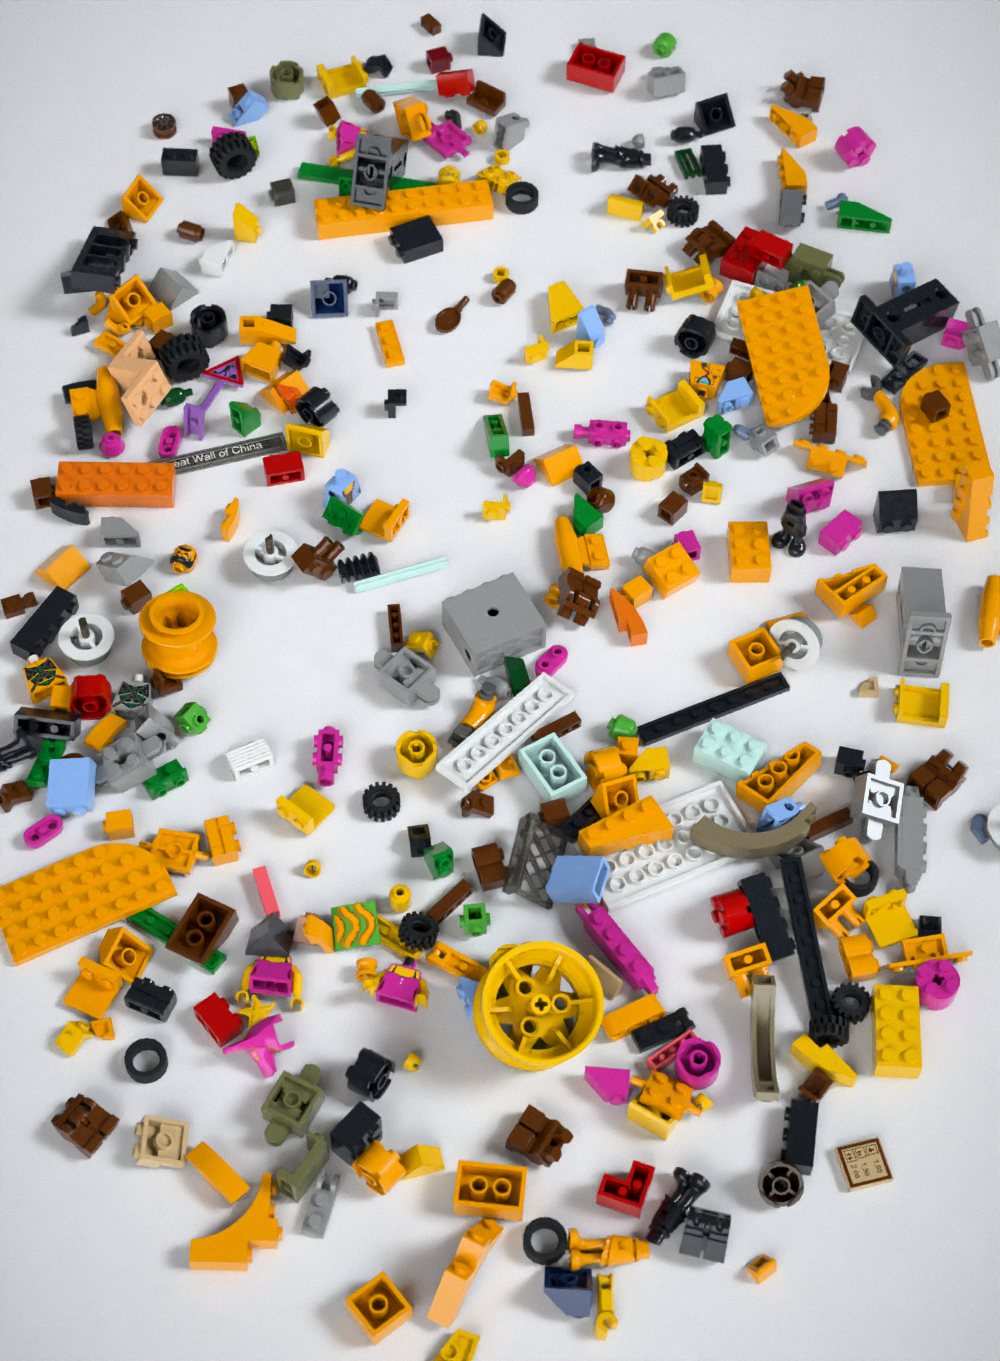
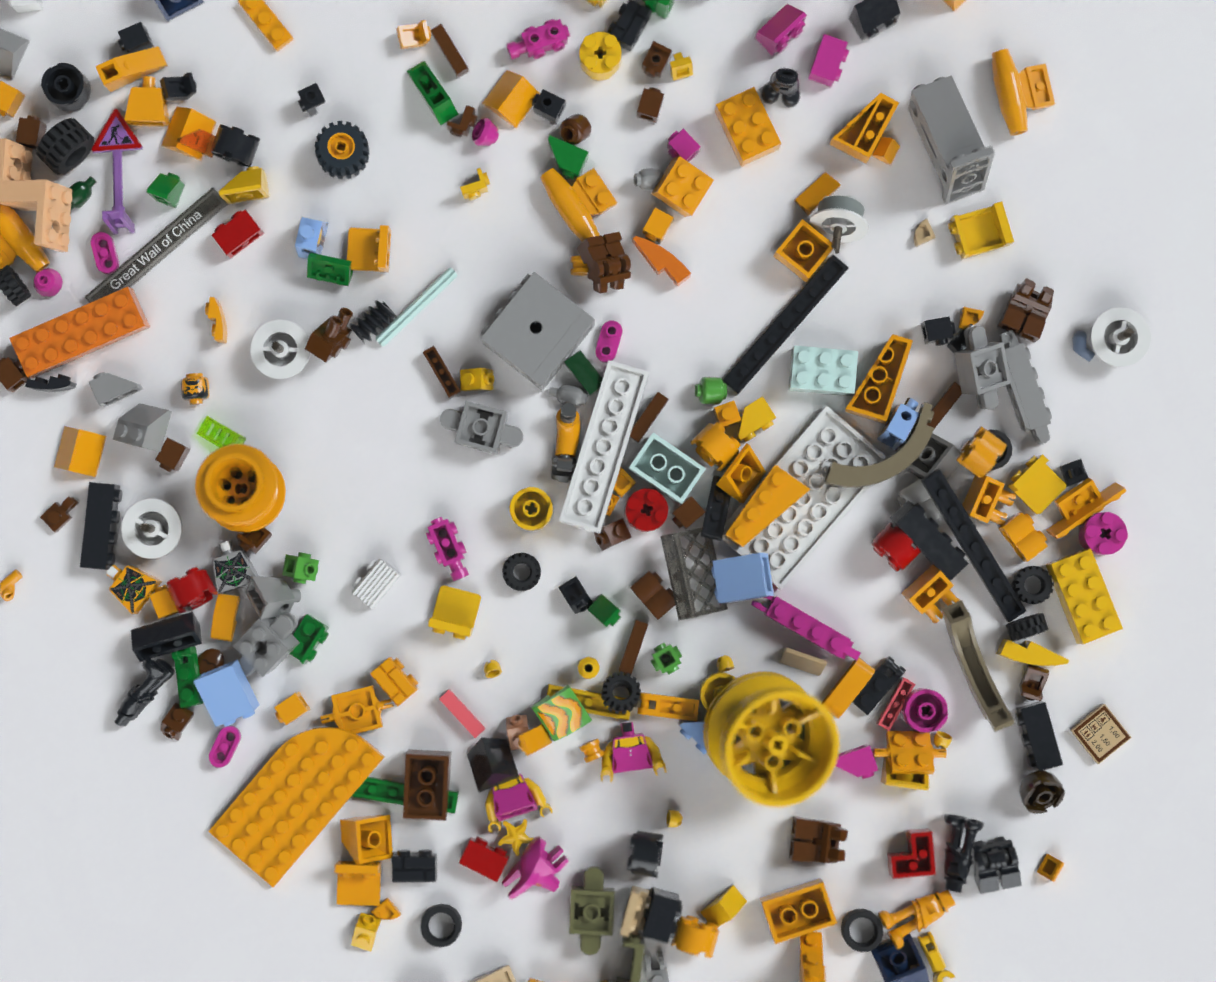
camera: 25 degrees left, 30 degrees up
(330, 1114) = (632, 918): none -> tan plate
(401, 443) = (342, 150): none -> black wheel
(517, 795) = (652, 499): none -> red brick

